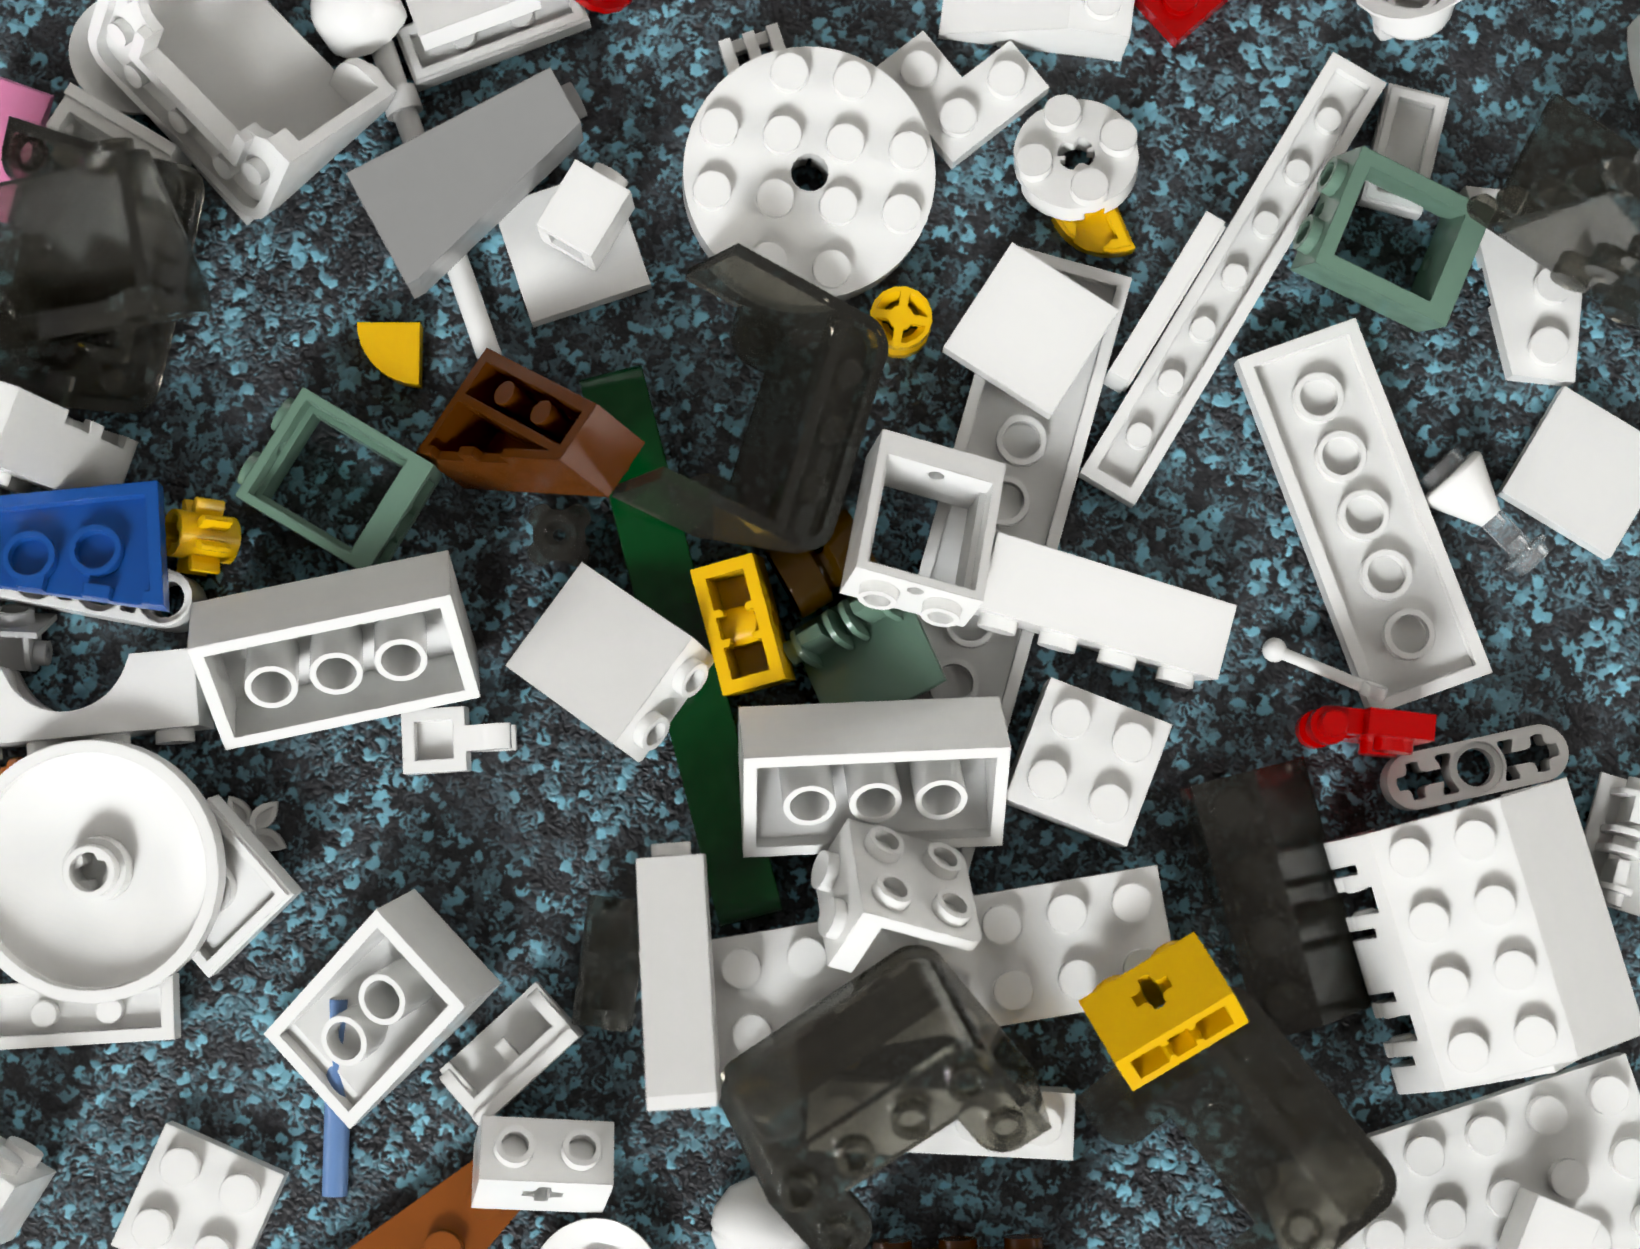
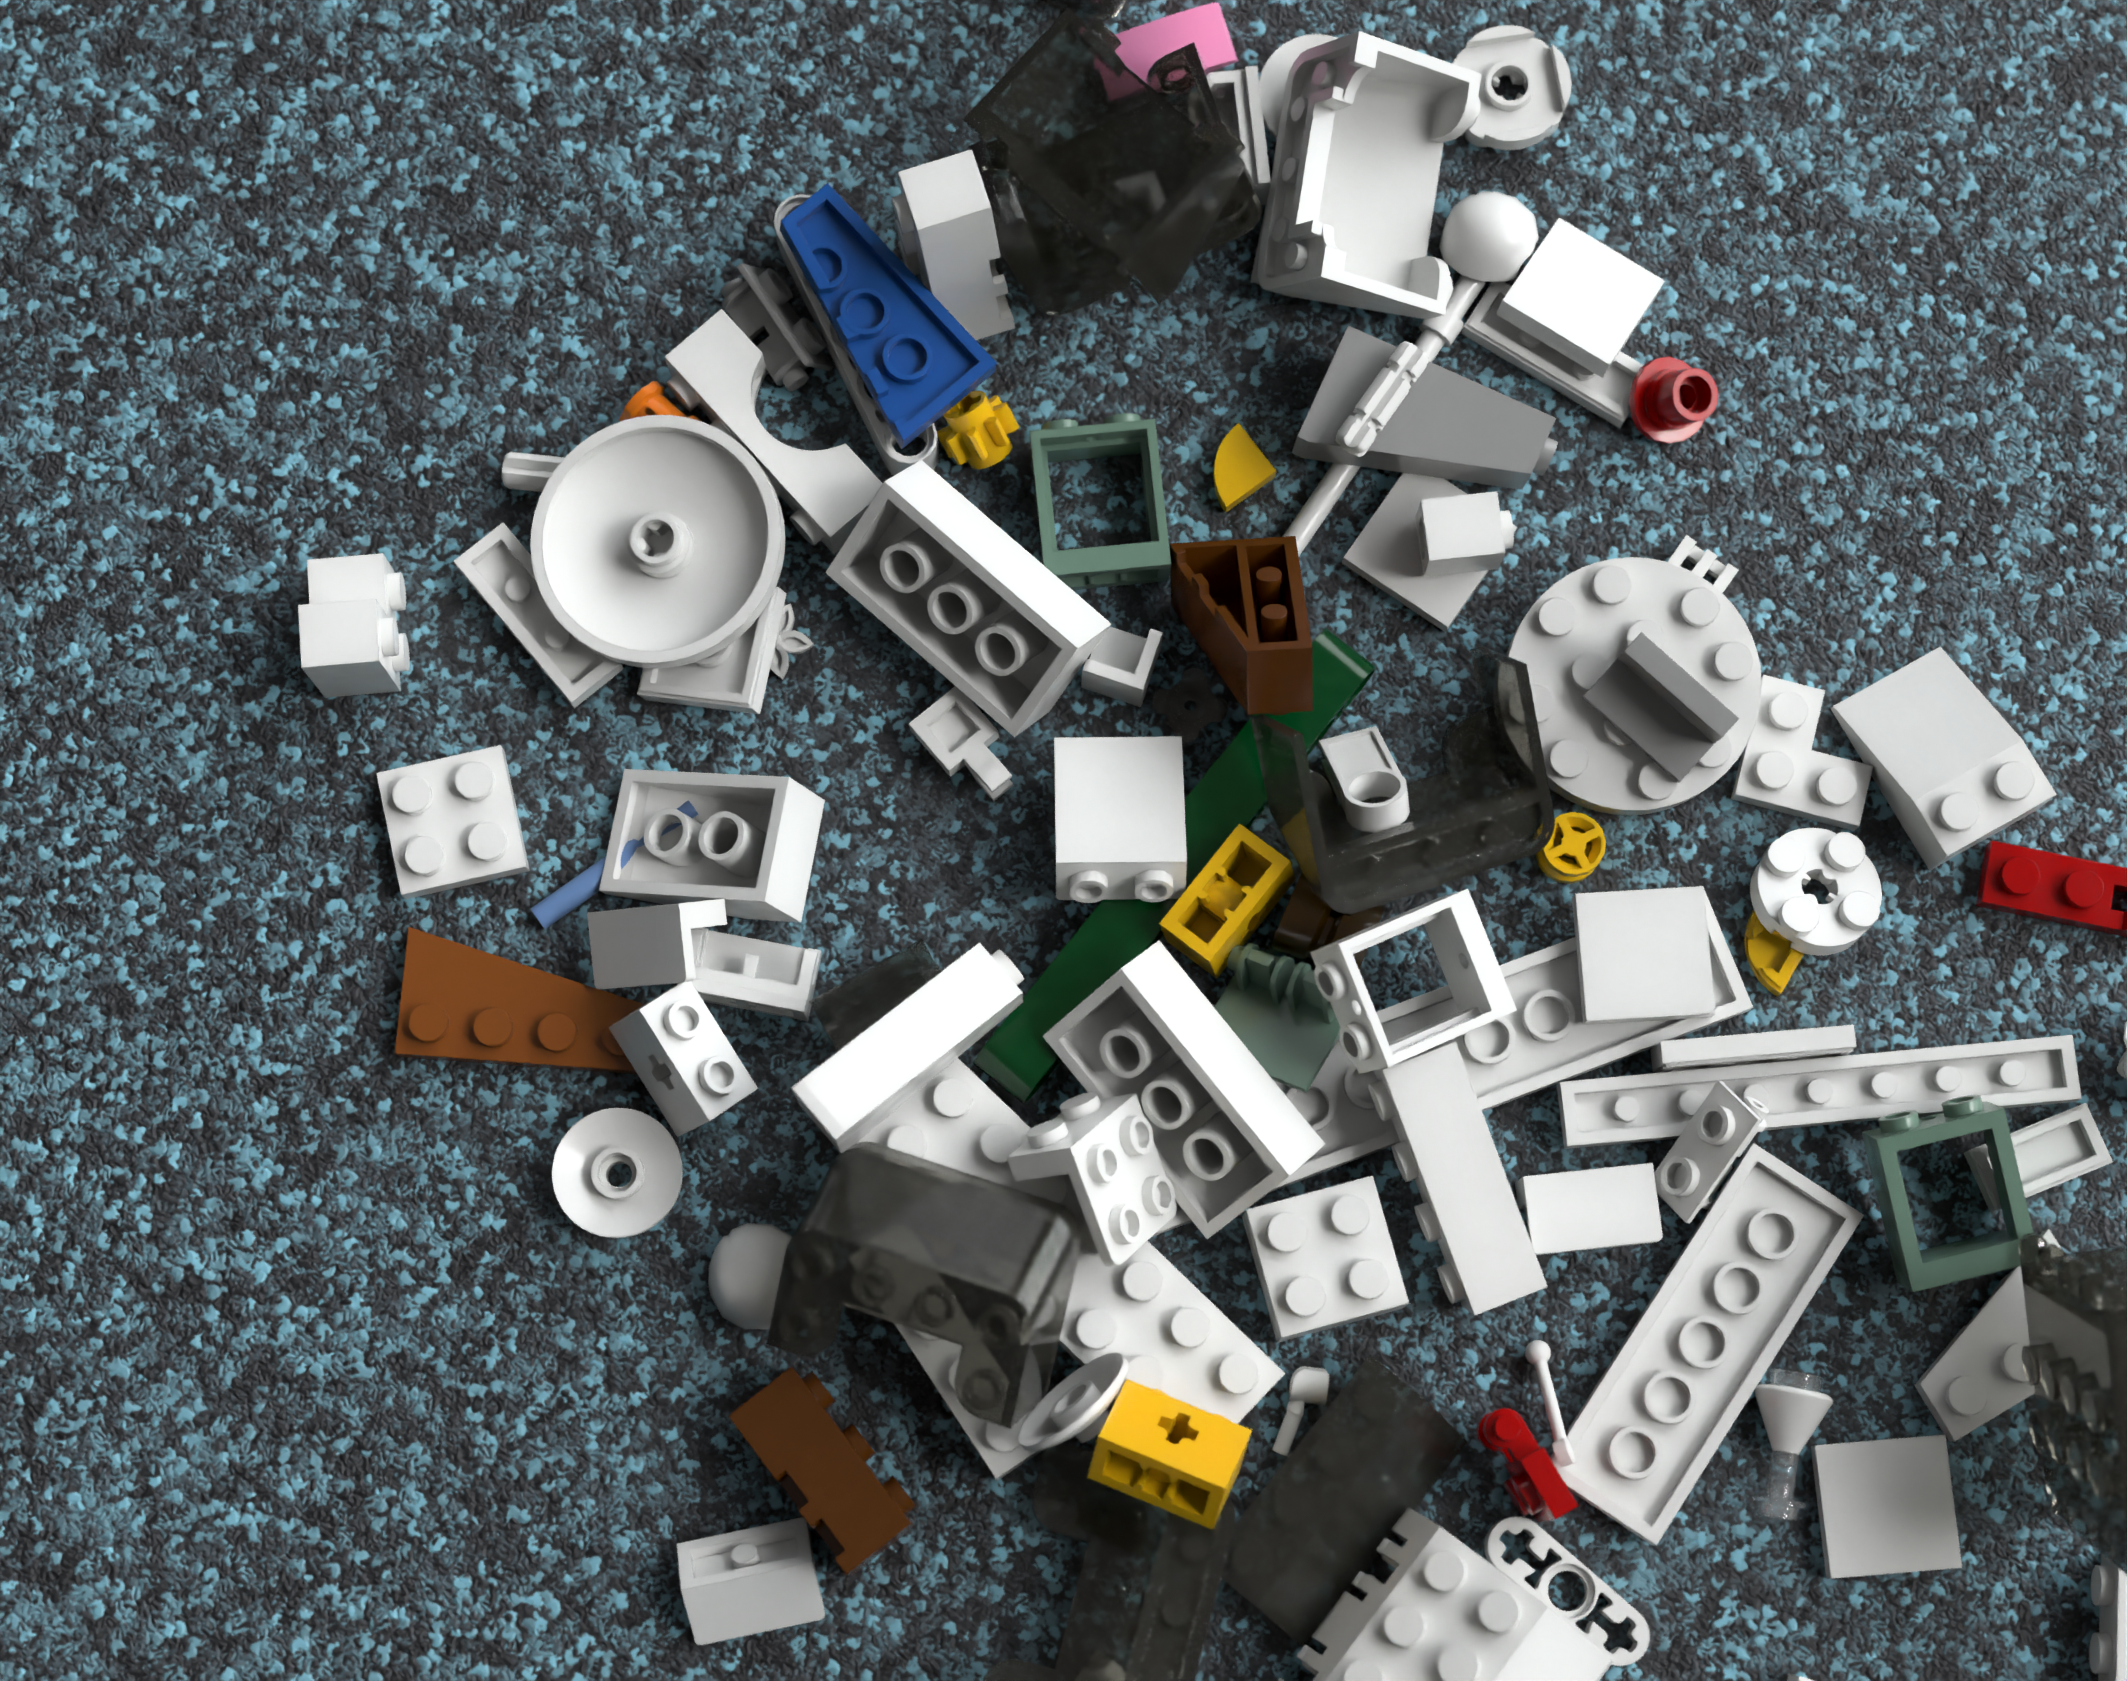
camera: 55 degrees right, 5 degrees down
(425, 1123) = (648, 942): none -> white panel
(429, 192) = (1382, 399): none -> white axle
(485, 564) = (1122, 665): none -> white panel
(715, 438) = (1363, 769): none -> white piece
(847, 165) = (1660, 707): none -> light grey panel
(1066, 1057) = (1075, 1404): none -> white dish
(1170, 851) = (1306, 1386): none -> white hand
(1198, 524) = (1591, 1208): none -> white panel
(1220, 399) = (1707, 1149): none -> white hinge

